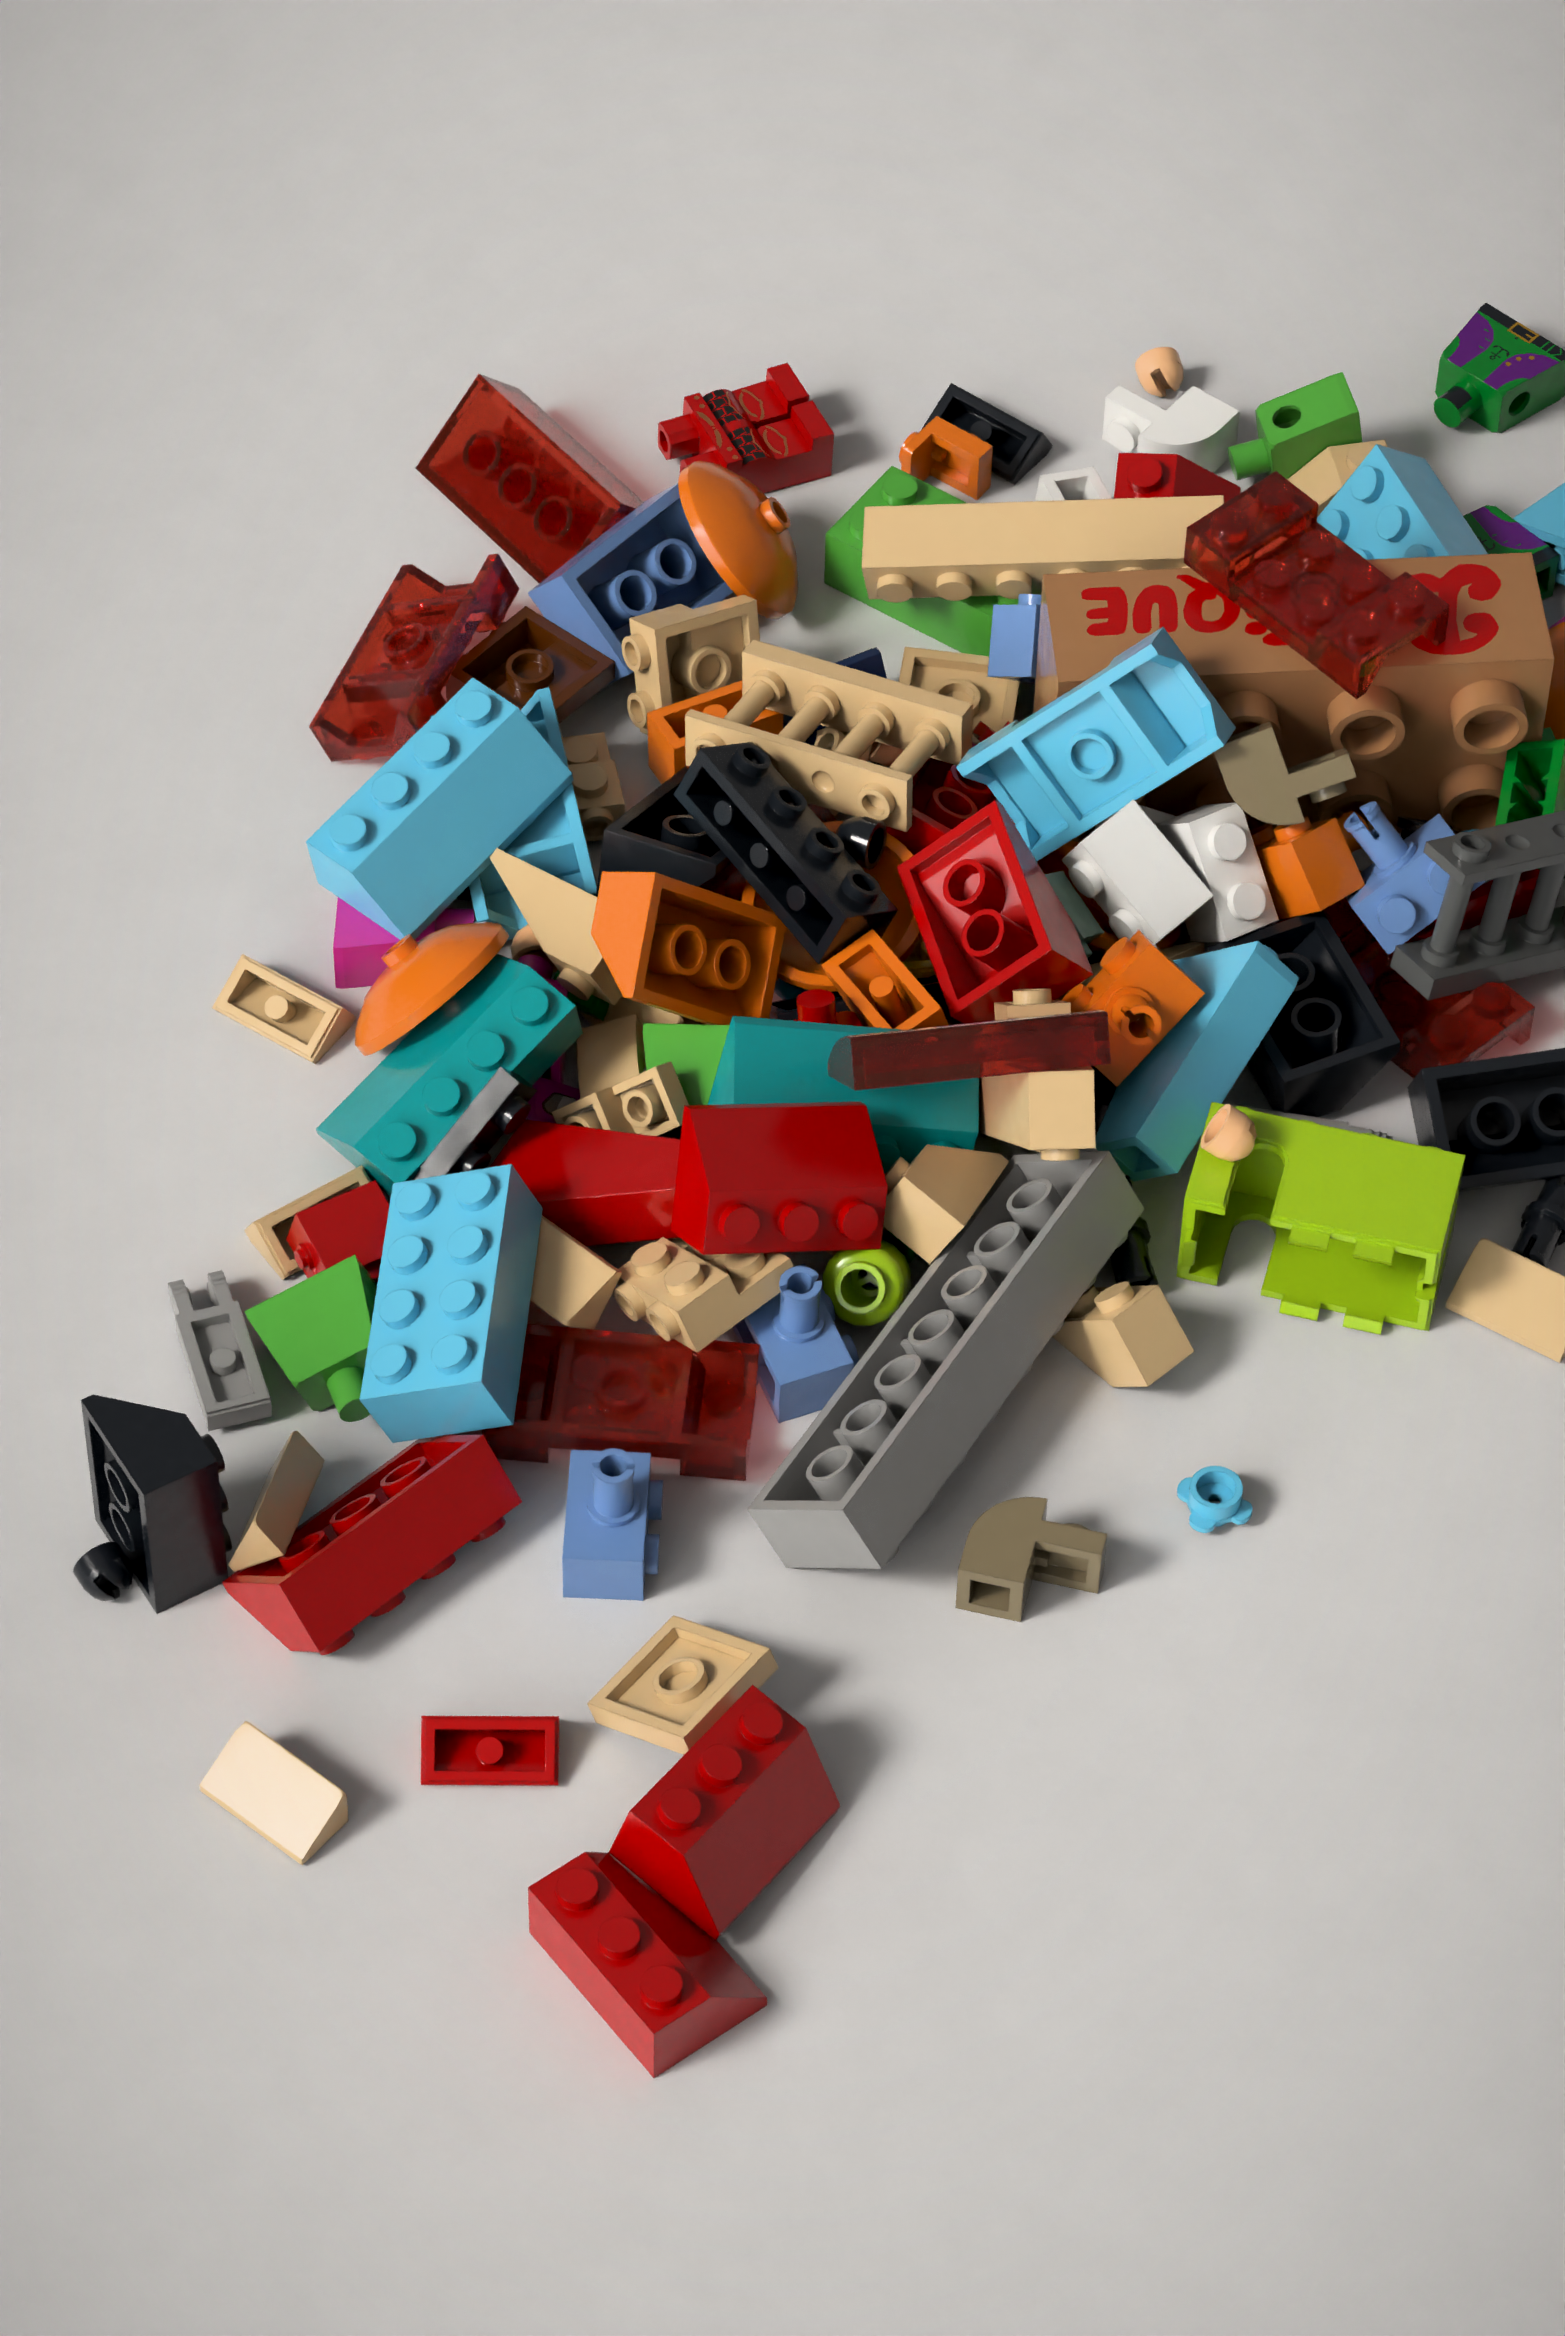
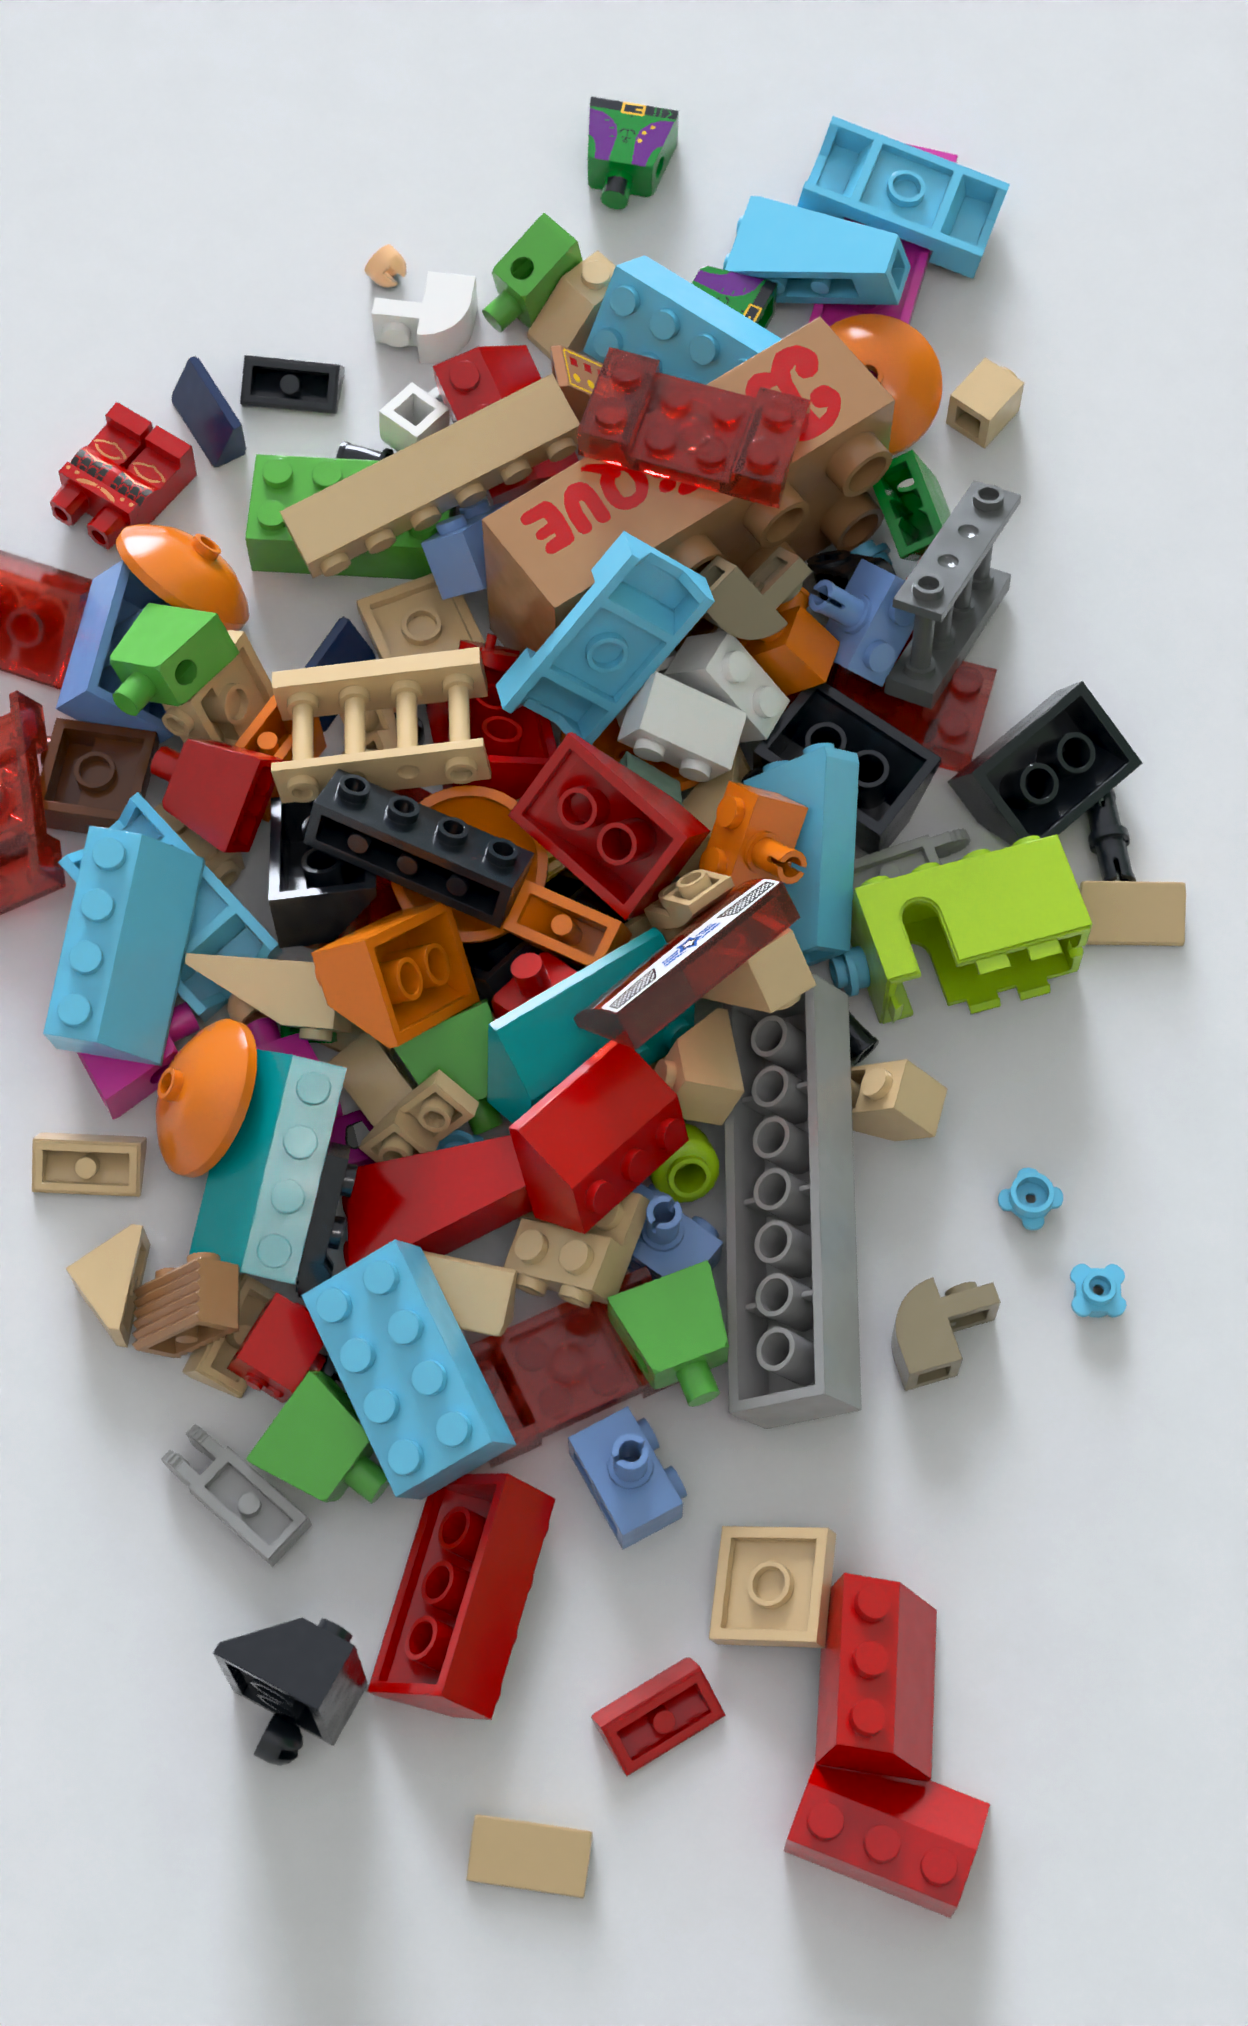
camera: 30 degrees left, 15 degrees up
(235, 1111) = (109, 1278): none -> tan slope
(279, 1504) = (374, 1609): tan slope -> none
(282, 1157) = (187, 1306): none -> medium nougat brick
(628, 728) = (216, 790): none -> red torso
(661, 581) = (169, 656): none -> bright green torso
(743, 1399) = (674, 1330): none -> bright green torso
(863, 839) = (466, 804): black hinge -> none
(877, 422) = (208, 414): none -> dark blue slope
(949, 456) = (281, 417): orange bracket -> none
(1169, 1203) = (850, 971): none -> medium azure plate
(1219, 1629) = (1090, 1304): none -> medium azure plate
(1229, 1134) = (891, 913): light nougat hinge -> none

